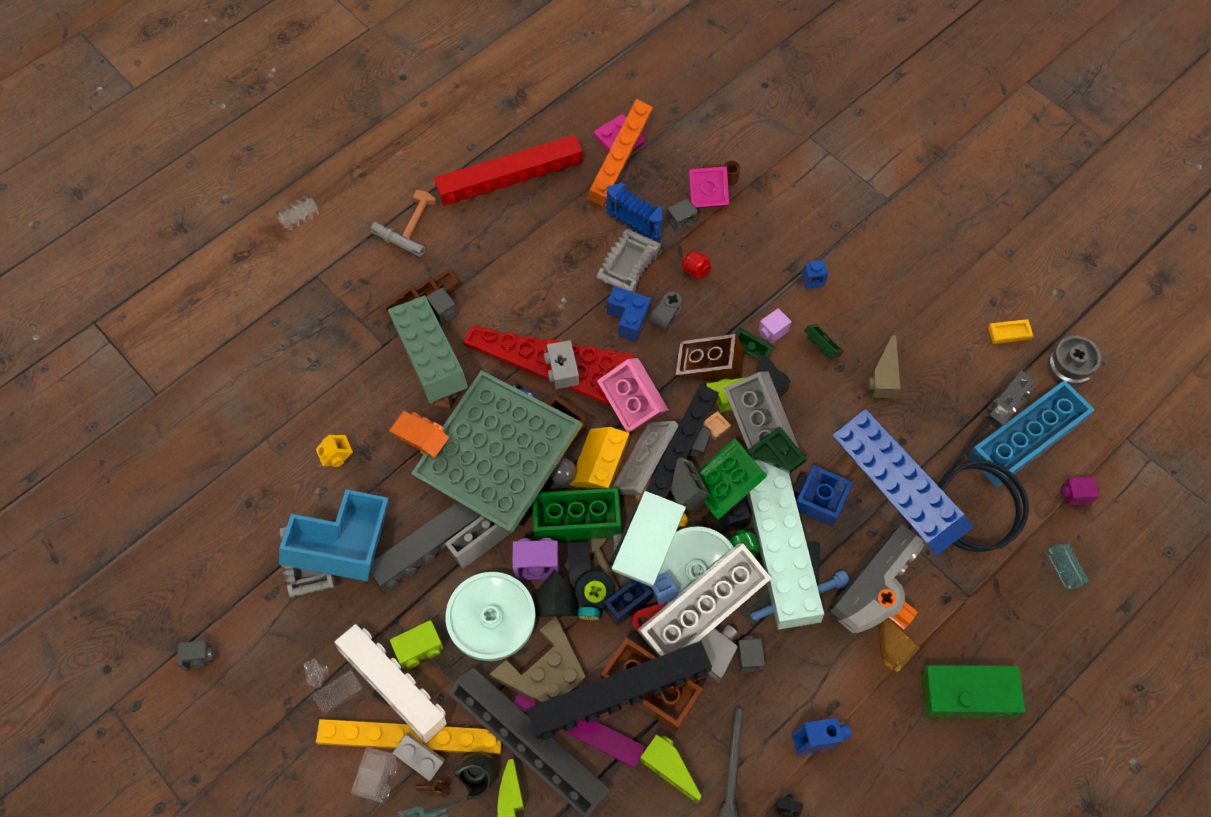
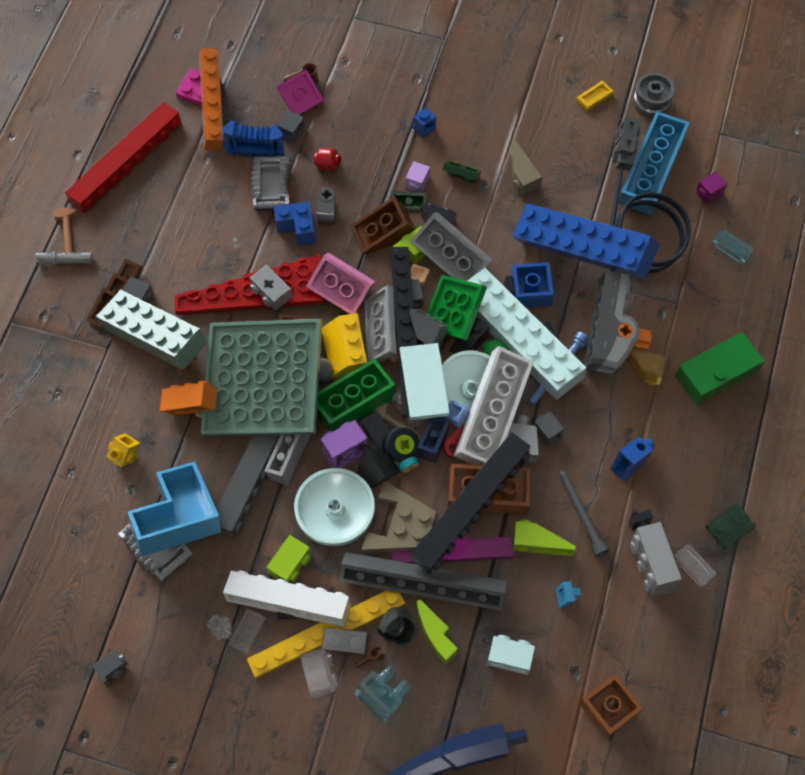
camera: 30 degrees left, 0 degrees up
(778, 451) = (482, 267): dark green wing -> none

